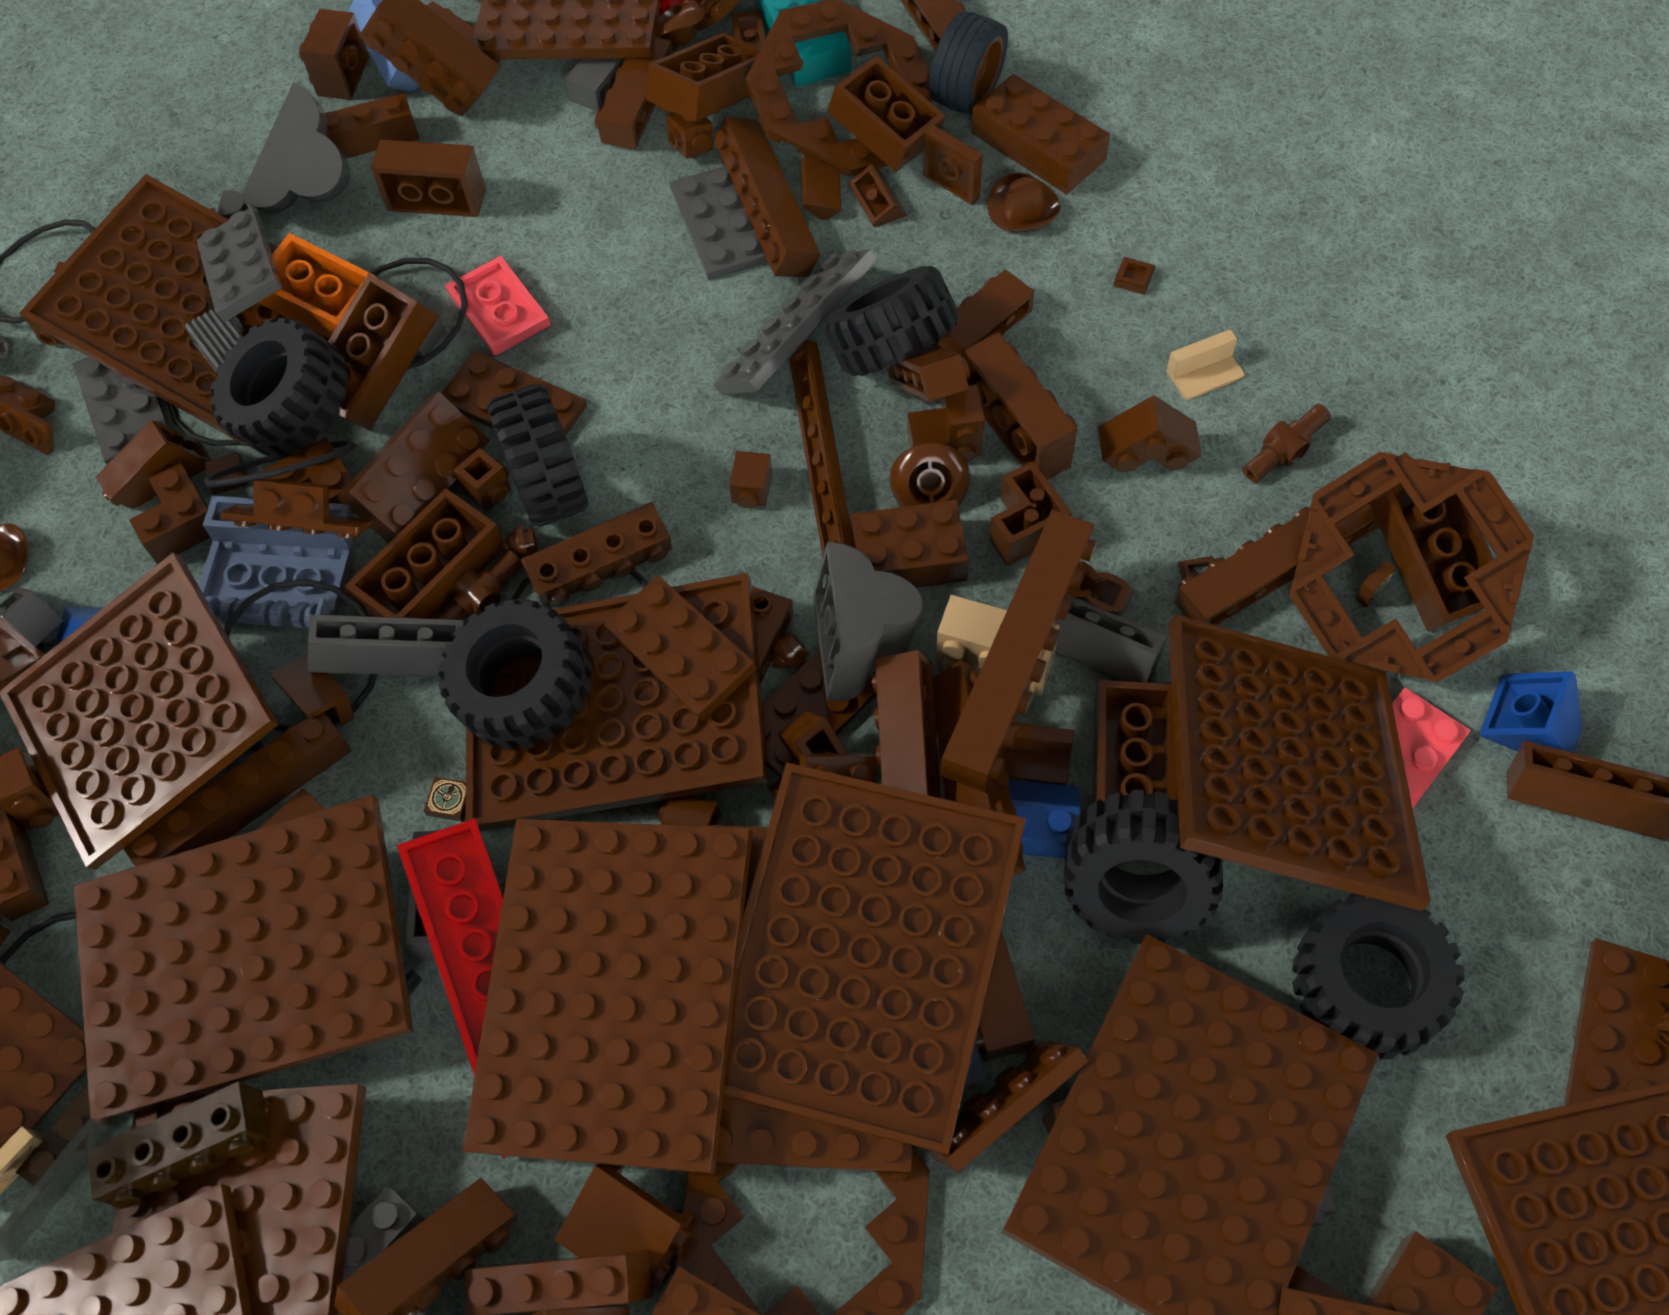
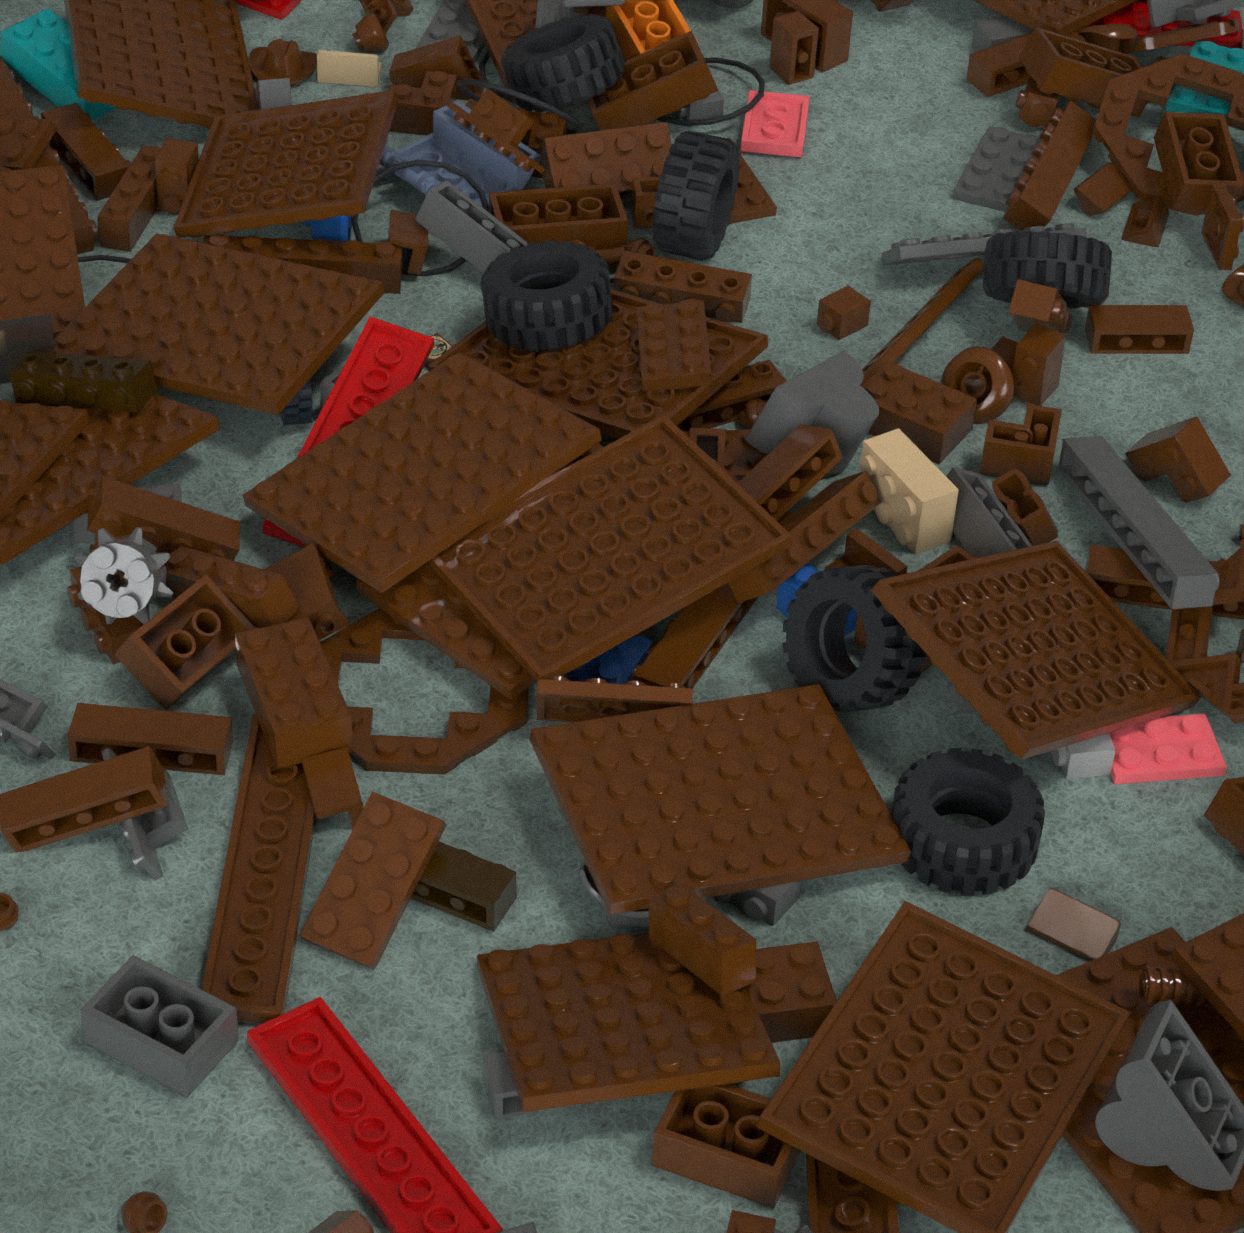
camera: 35 degrees right, 20 degrees down
(45, 464) = (370, 34): none -> reddish brown cone
(61, 520) = (348, 68): none -> tan panel
(444, 213) = (793, 47): none -> reddish brown brick
(1017, 652) = (906, 471): reddish brown brick -> none
(1020, 407) = (1095, 378): reddish brown brick -> none
(1201, 537) = (1138, 523): none -> dark grey brick
(1534, 1005) = (1074, 925): none -> reddish brown slope

